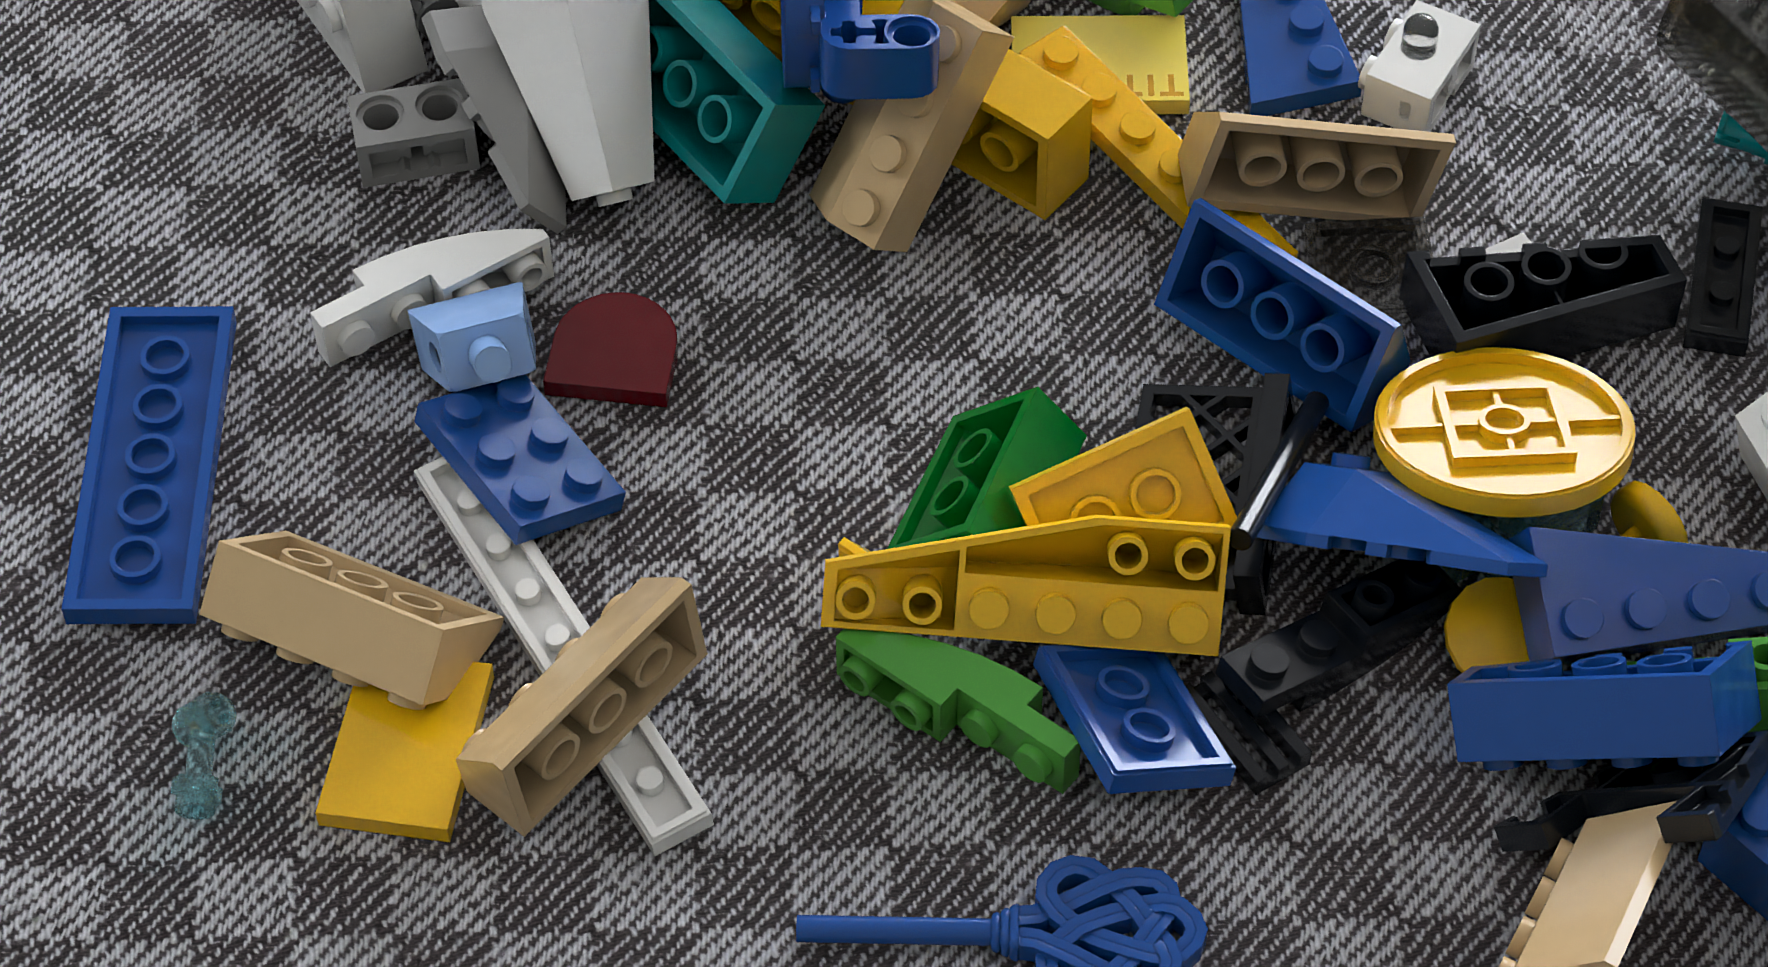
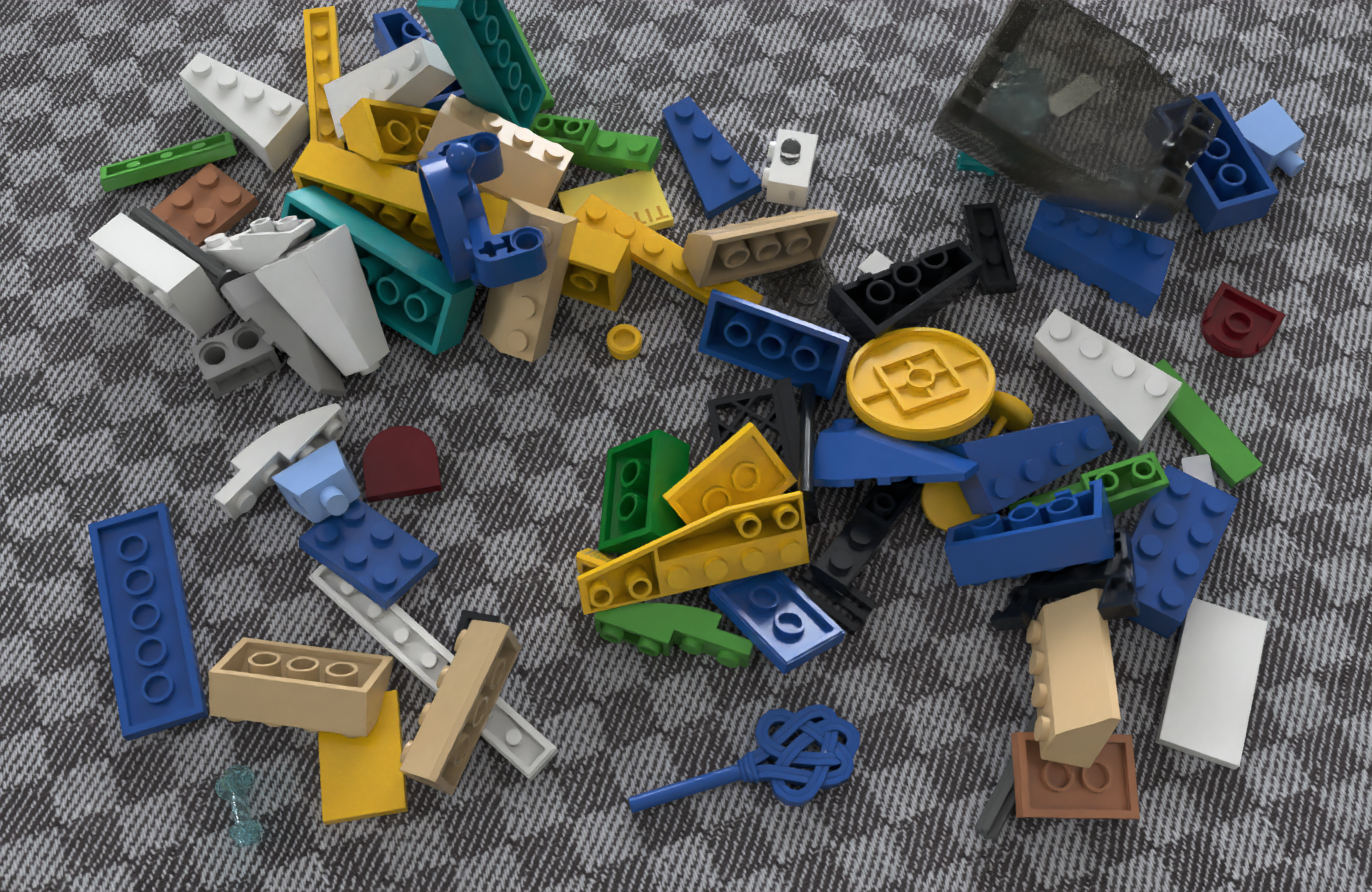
camera: 20 degrees left, 10 degrees up
(1039, 265) = (624, 342): none -> yellow tile

